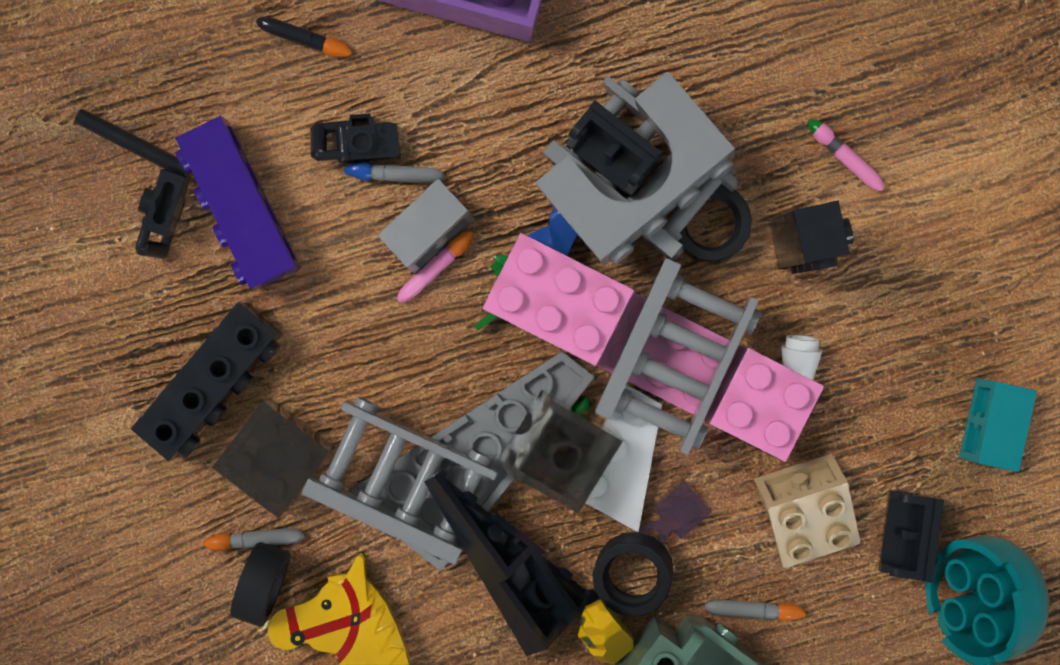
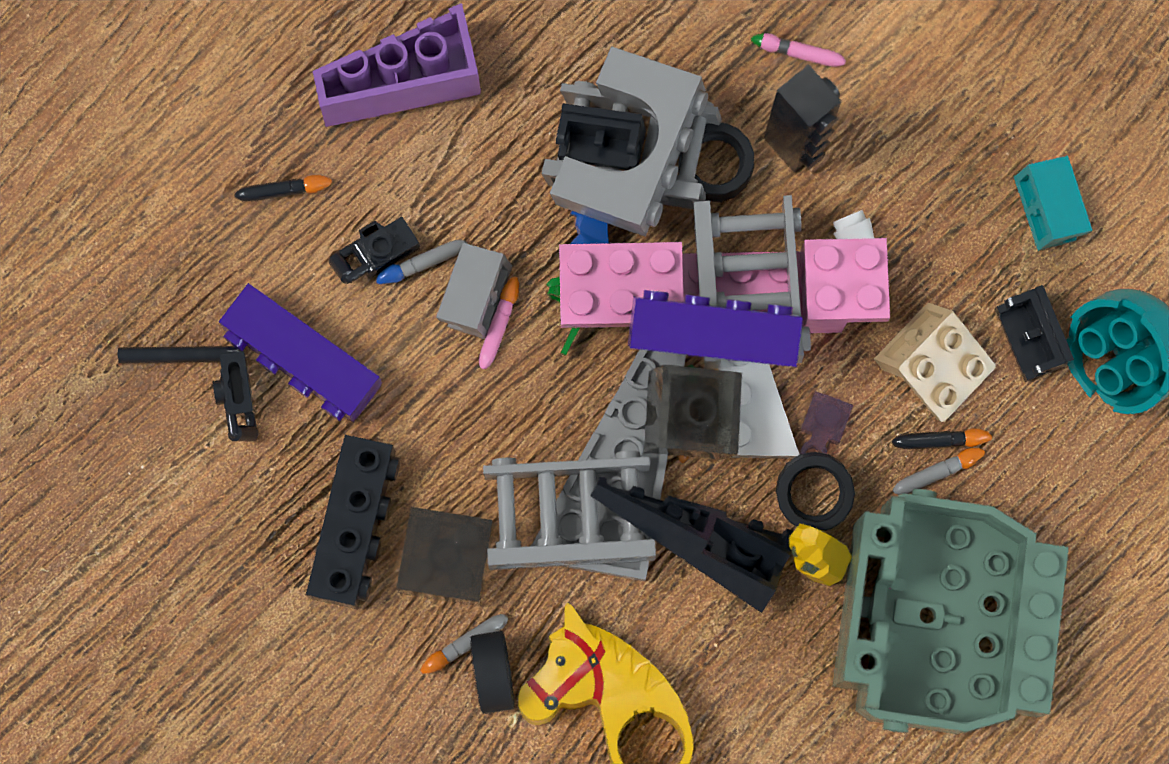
camera: 30 degrees left, 10 degrees down
(616, 395) = (715, 331): none -> dark purple brick
(774, 583) = (943, 439): none -> black piece

